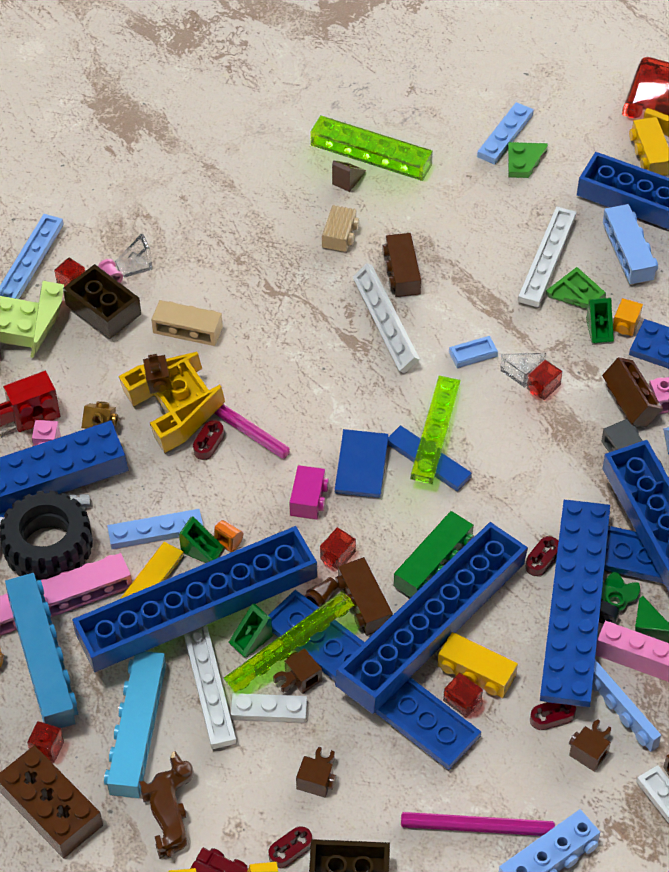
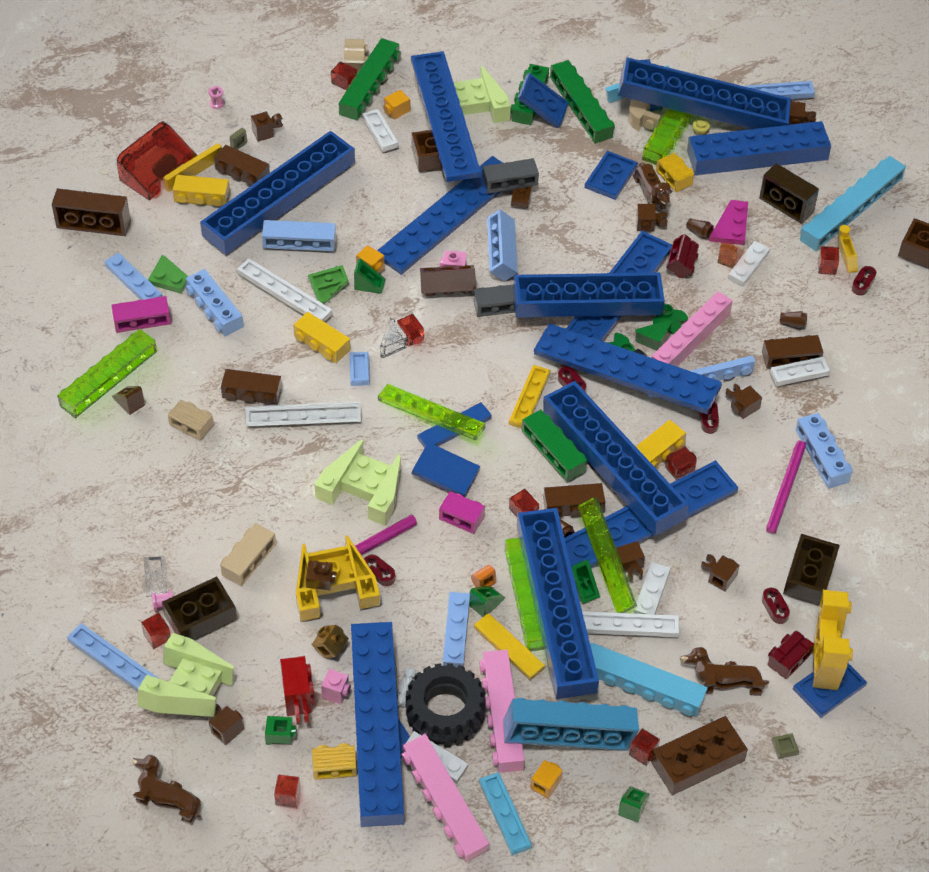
camera: 75 degrees left, 0 degrees up
(321, 394) = (362, 478): none -> yellowish green wedge
(459, 150) = (141, 314): none -> dark pink brick
(496, 304) = (321, 337): none -> yellow brick
(501, 202) = (214, 302): none -> light blue brick
(508, 519) = (529, 395): none -> yellow tile
(569, 68) = (91, 212): none -> reddish brown brick

